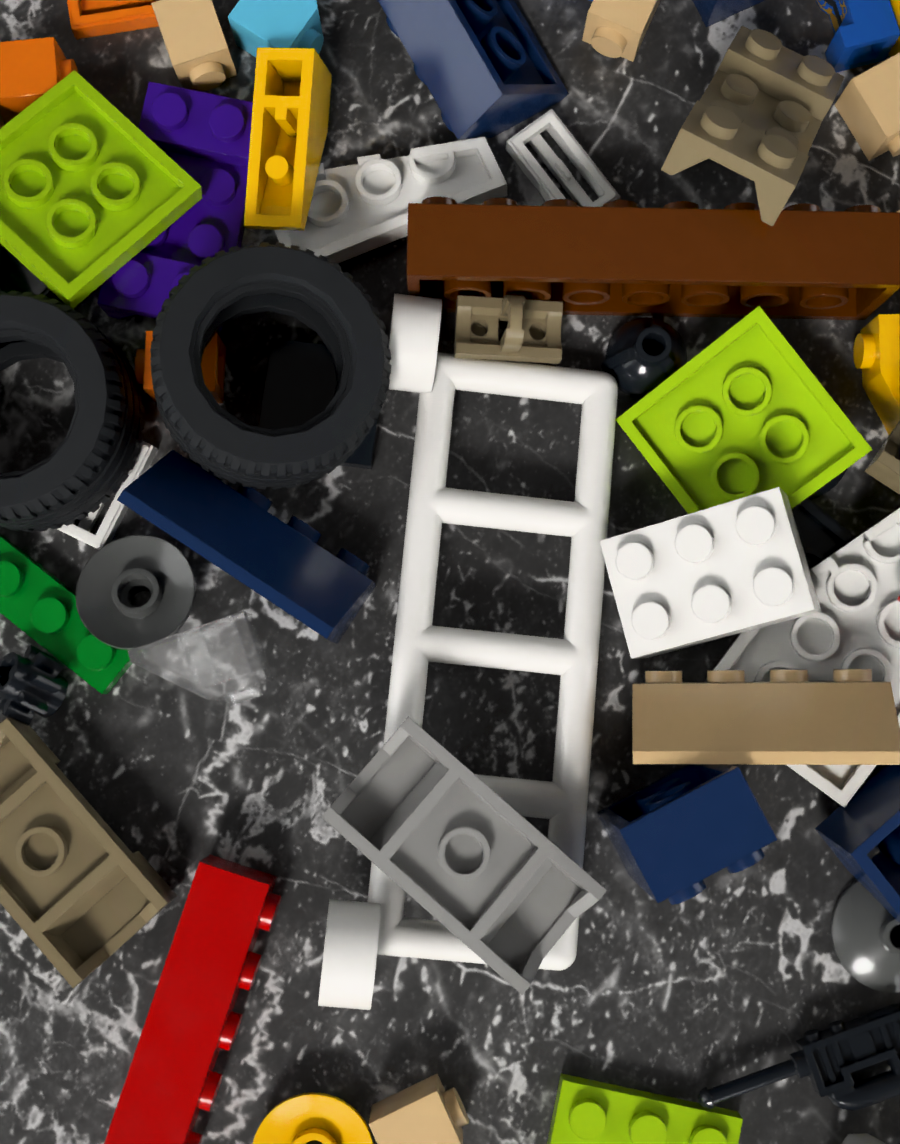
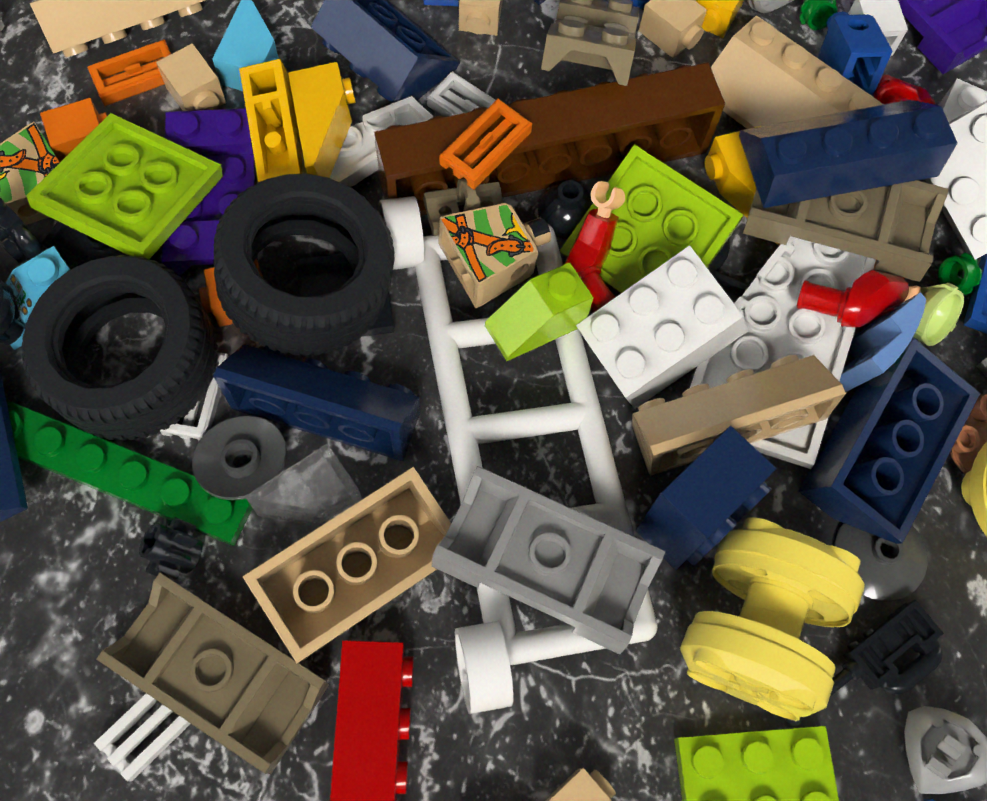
camera: 20 degrees left, 15 degrees down
(234, 773) = (350, 565): none -> tan slope
(351, 147) = (321, 114): none -> yellow slope
(509, 293) = (463, 168): none -> orange tile
(522, 405) = (491, 249): none -> torso
(556, 515) = (540, 312): none -> lime slope
(651, 441) = (595, 241): none -> red arm
(687, 1029) = (784, 584): none -> light yellow piece

